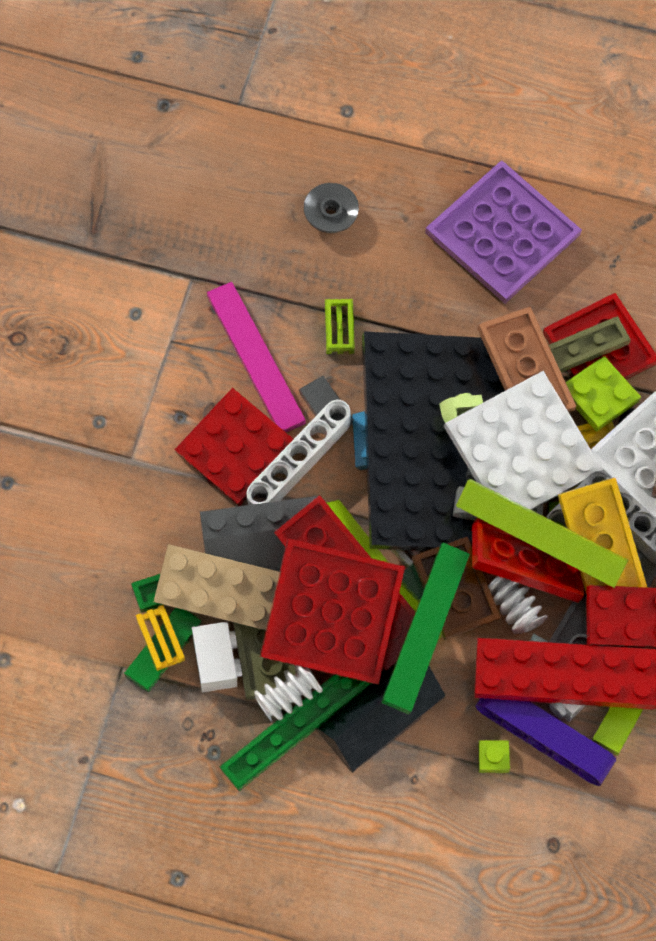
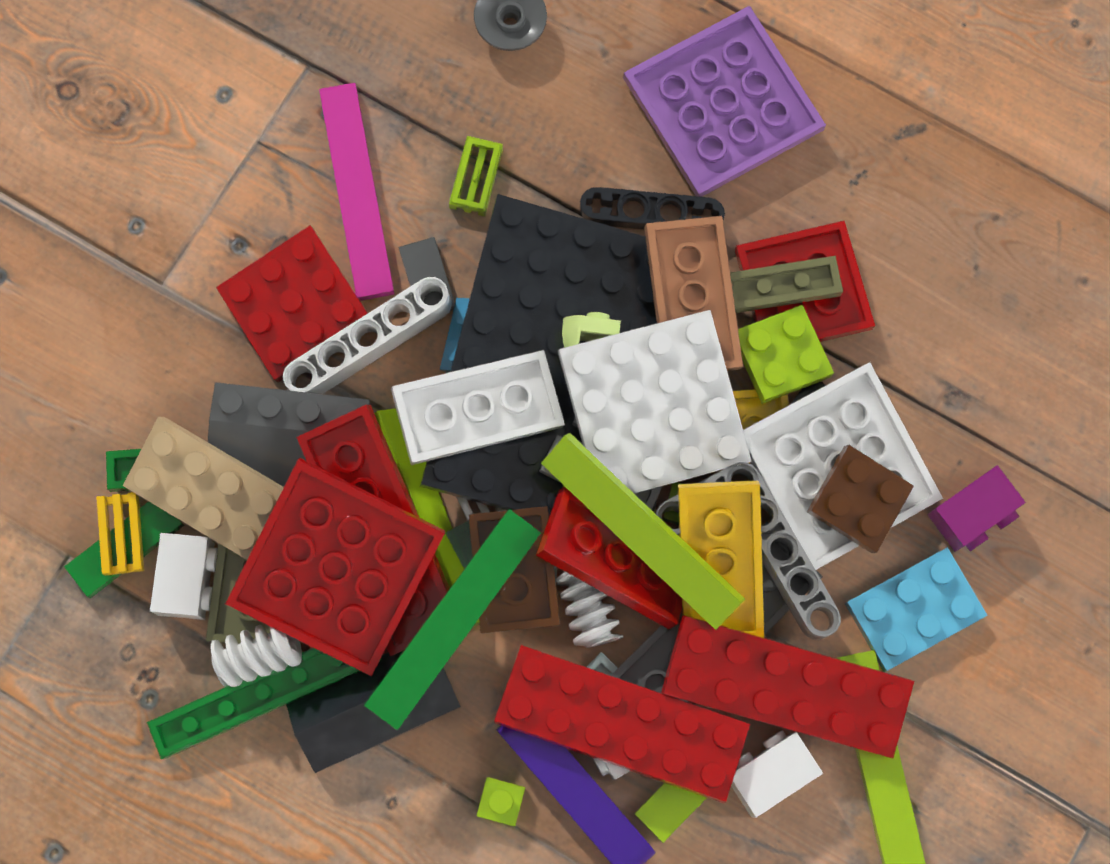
camera: 15 degrees right, 10 degrees up
(397, 479) = (477, 407): none -> white plate
(471, 313) = (651, 202): none -> black beam

